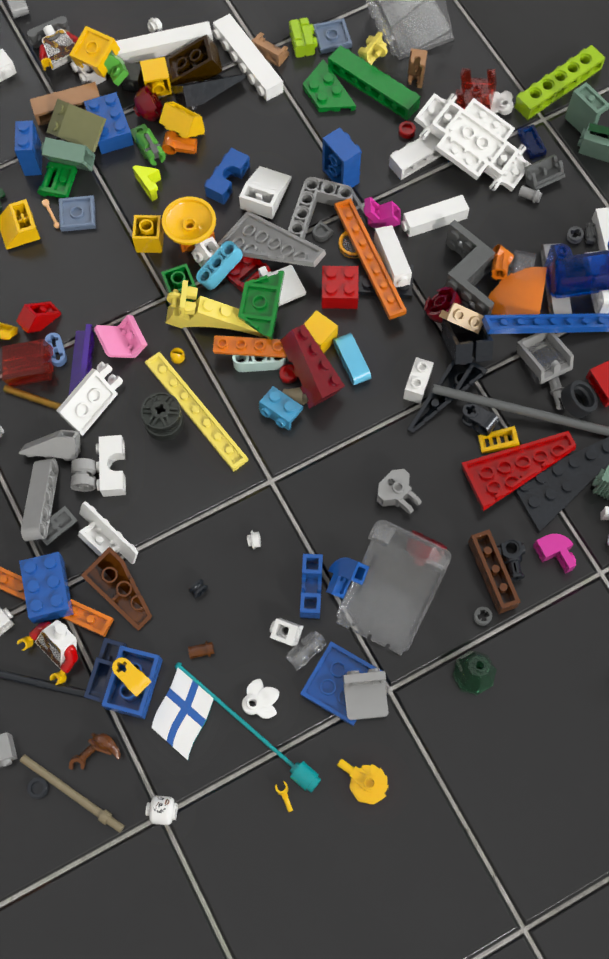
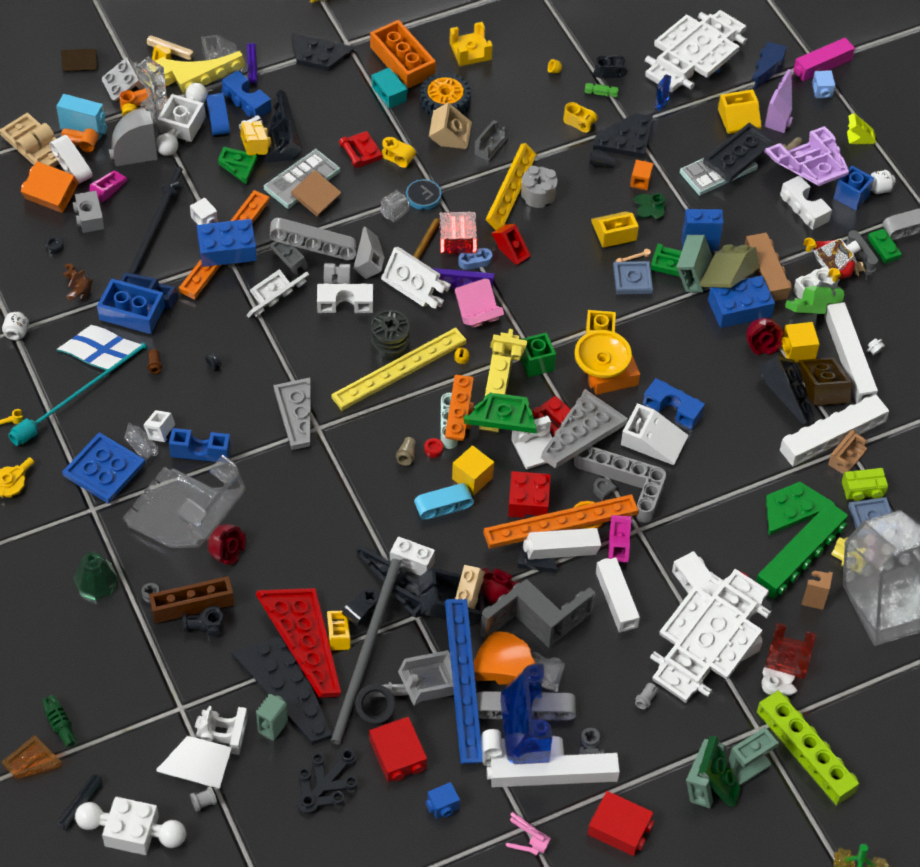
camera: 90 degrees right, 15 degrees down
(37, 17) = (884, 246): none -> green plate
(57, 644) = (172, 253): torso -> none
(93, 49) = (819, 276): yellow panel -> none
(104, 816) = (20, 288): dark tan bar -> none
(114, 583) = (225, 293): reddish brown wedge -> none
(133, 678) = (129, 295): yellow piece -> none
(147, 144) = (714, 335): bright green plate -> none
(147, 179) = (668, 331): neon yellow slope -> none
(174, 143) = (716, 361): orange piece -> none
(181, 120) = (738, 360): yellow slope -> none
(204, 250) = (574, 371): white brick -> none
(227, 257) = (557, 387): medium azure beam -> none
(253, 502) = (294, 407): none -> light grey wing
(254, 539) = (256, 407): white plate -> none
(263, 698) = (100, 406): white plate -> none
(279, 408) = (392, 433): dark azure bracket -> none
(311, 366) = (426, 456): dark red wedge -> none
(341, 158) = (680, 497): blue brick -> none
(344, 572) = (199, 471): blue brick -> none
(365, 694) = (86, 478): light grey bracket -> none
(395, 489) = (289, 525): light grey hinge -> none
(501, 262) = (550, 644): orange piece -> none
(532, 141) = (723, 710): clear blue tile -> none
(544, 172) = (672, 710): dark grey hinge -> none
(556, 546) = (210, 665): dark pink brick -> none

